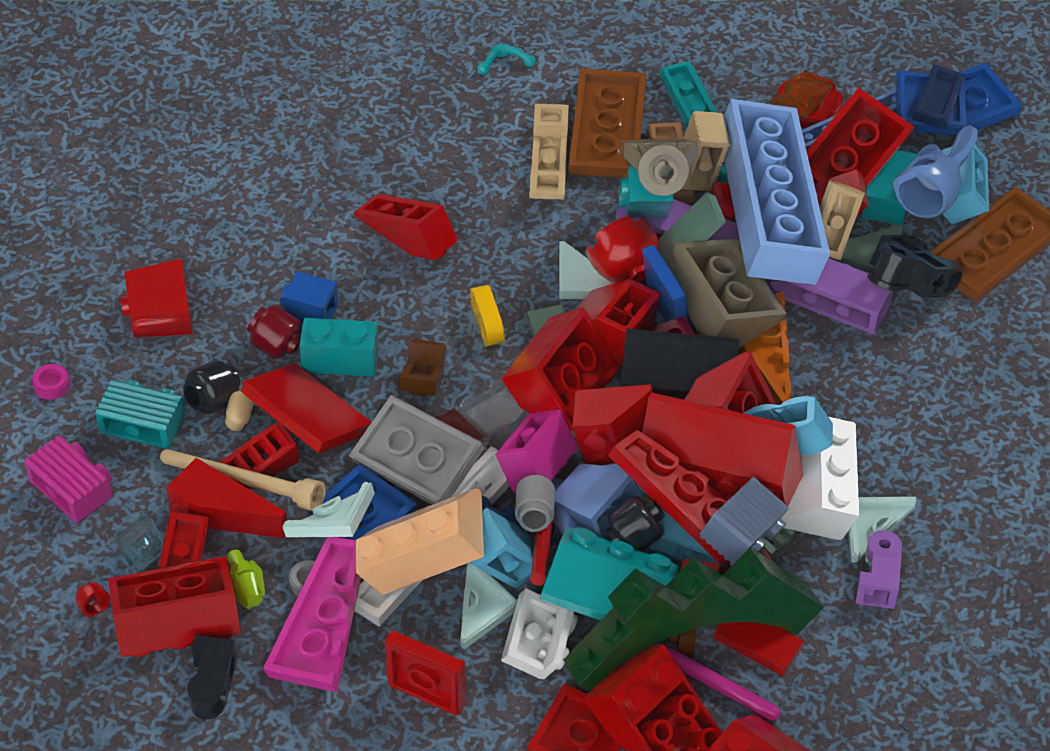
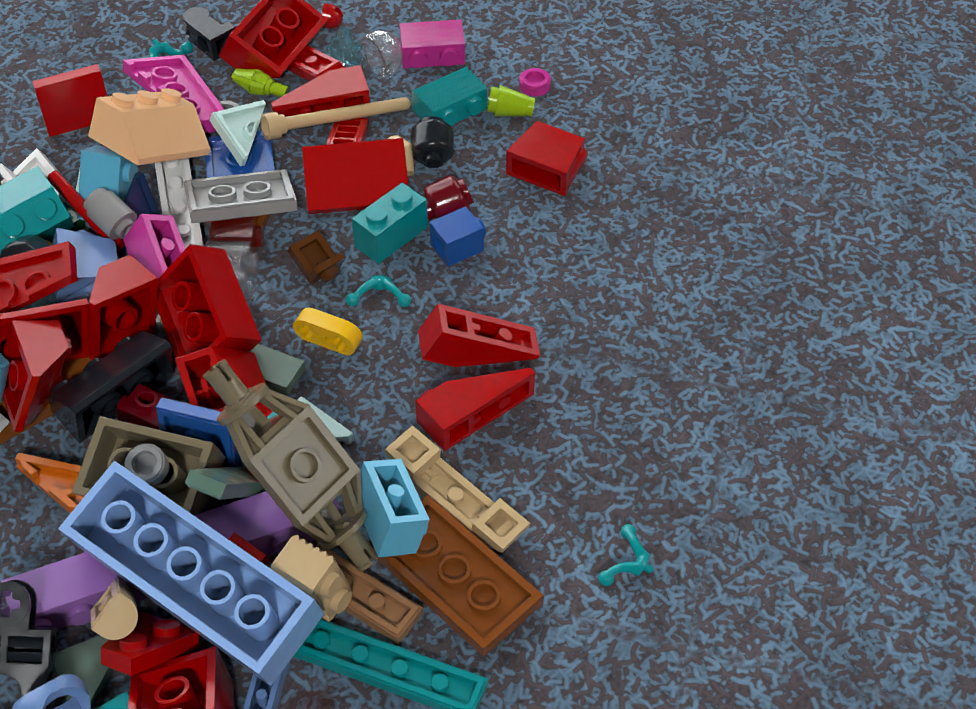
camera: 130 degrees right, 0 degrees up
(102, 370) = (509, 103): none -> lime cone
(122, 494) = (383, 53): none -> clear hair
(266, 712) = (165, 47): none -> teal piece
(404, 302) = (378, 283): none -> teal piece
(472, 192) = (470, 403): none -> red slope
(601, 149) = (393, 508): none -> medium azure brick
(730, 269) = (148, 463): none -> light grey tile

